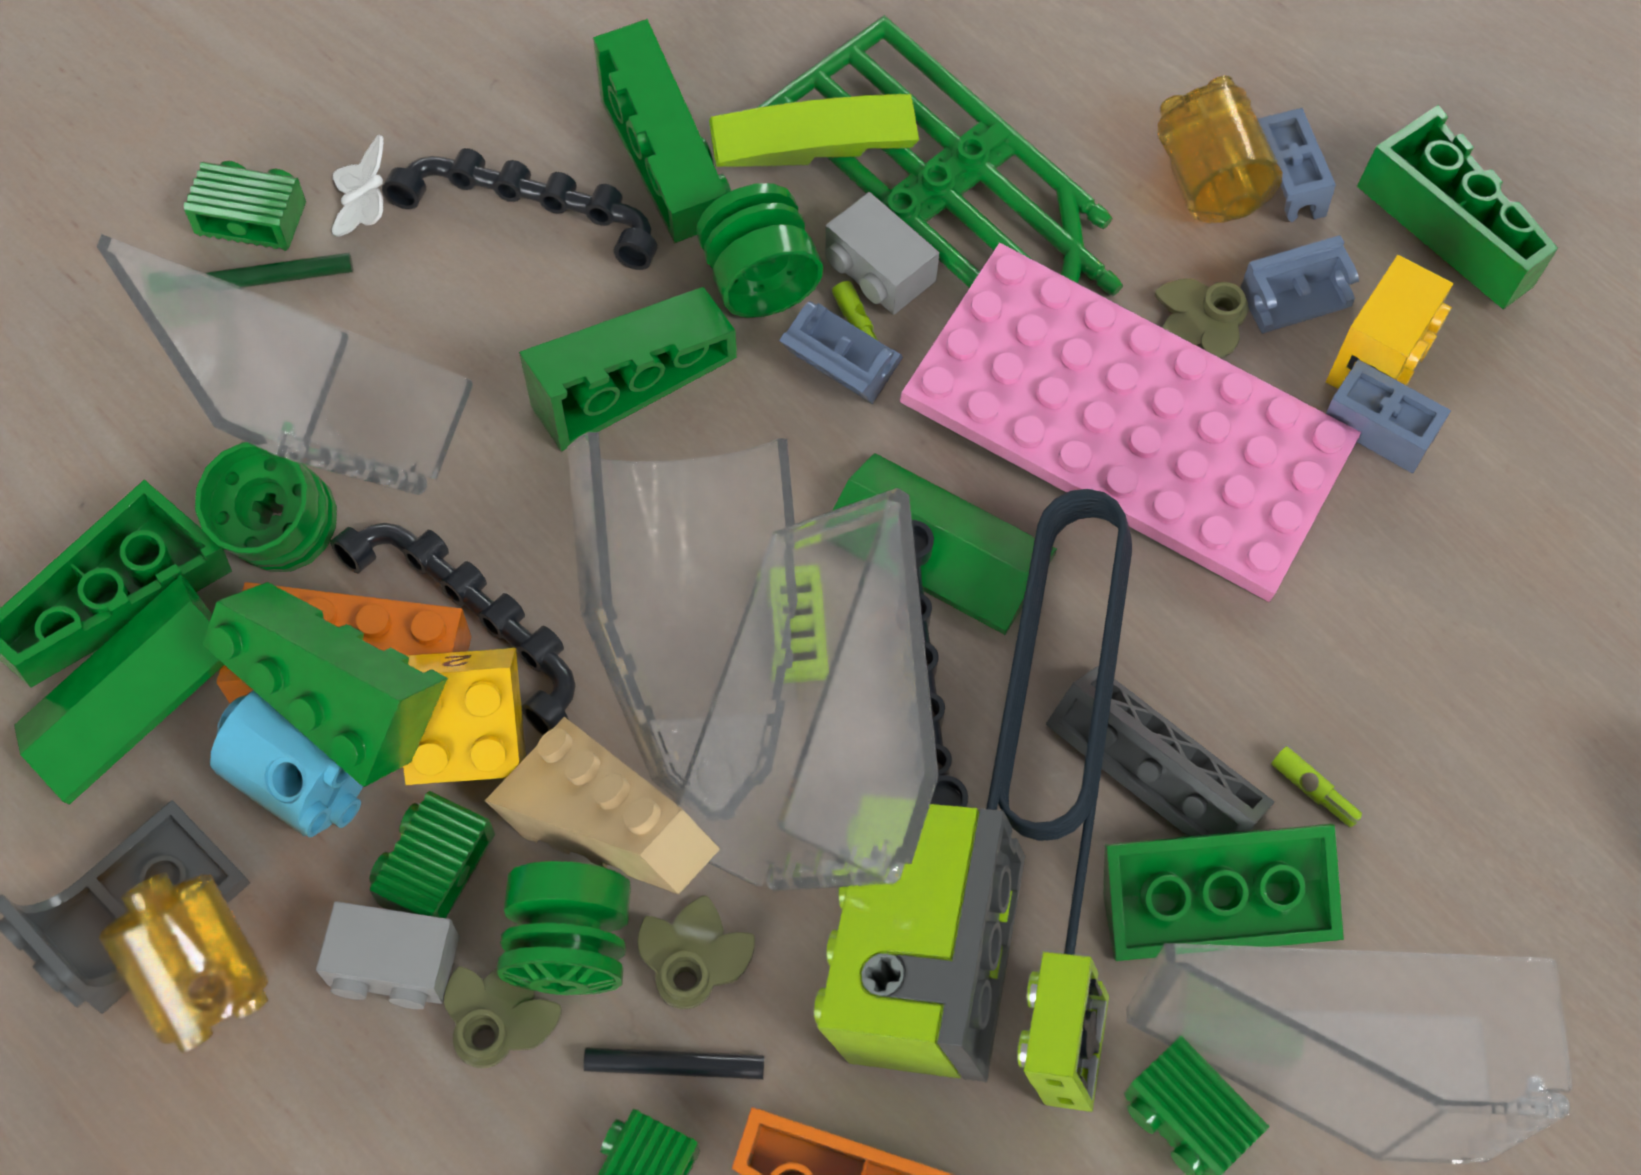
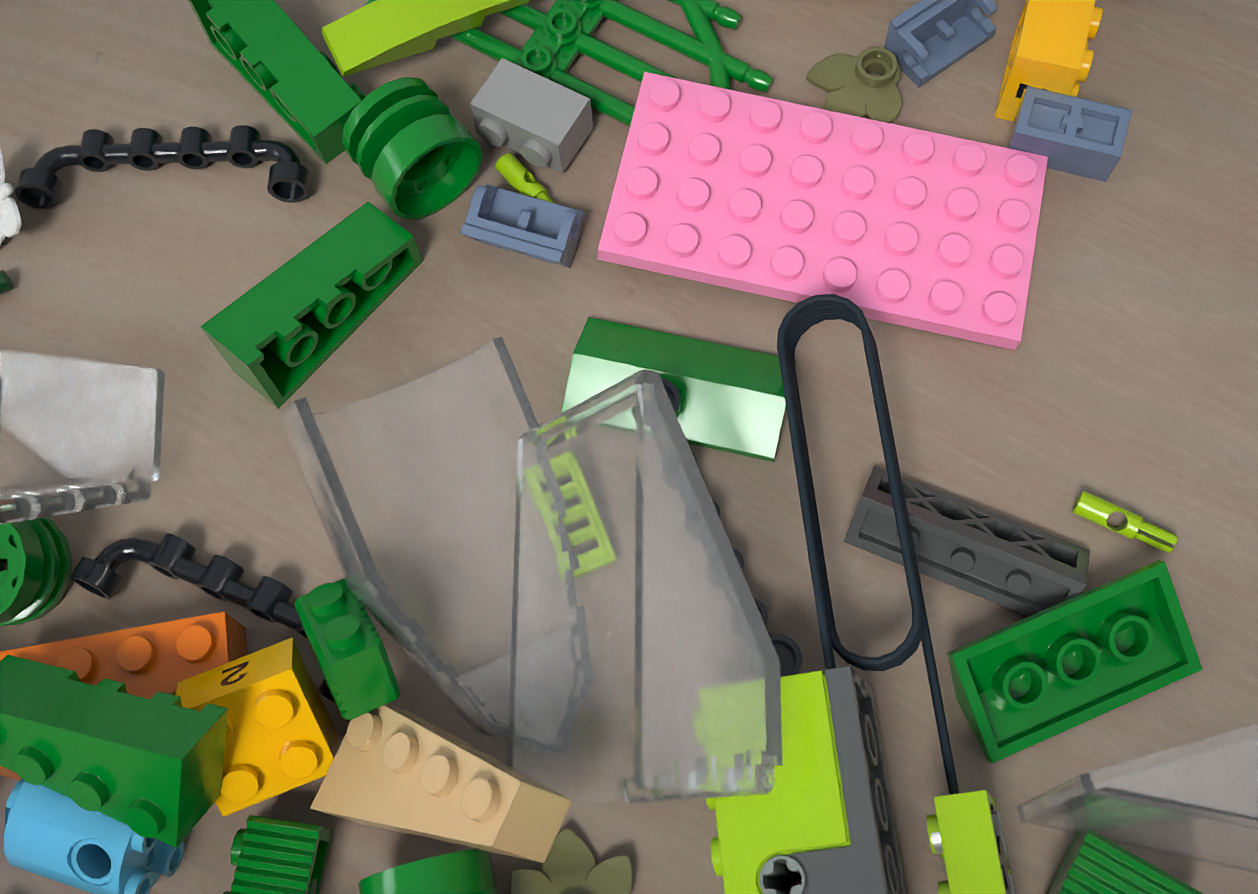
camera: 10 degrees left, 5 degrees up
(562, 669) = (347, 649): none -> green brick

